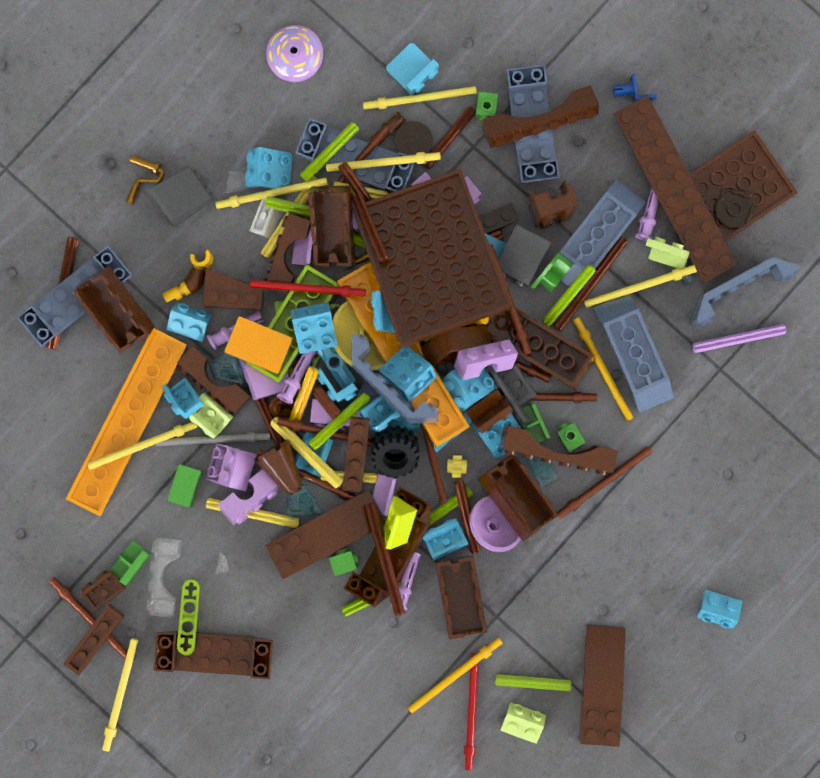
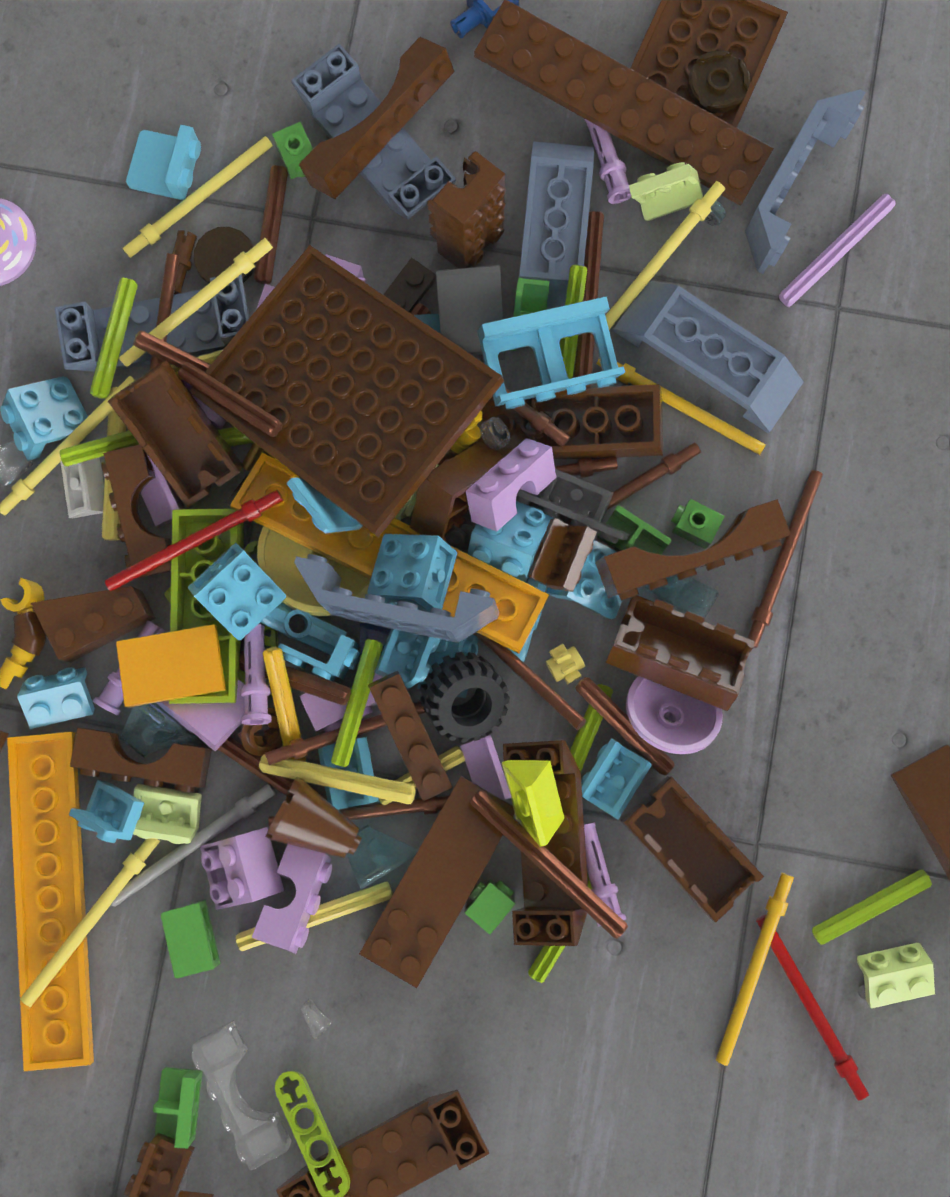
camera: 30 degrees left, 5 degrees down
(495, 326) = (495, 433): none -> clear tile
(550, 293) = (542, 333): none -> medium azure window

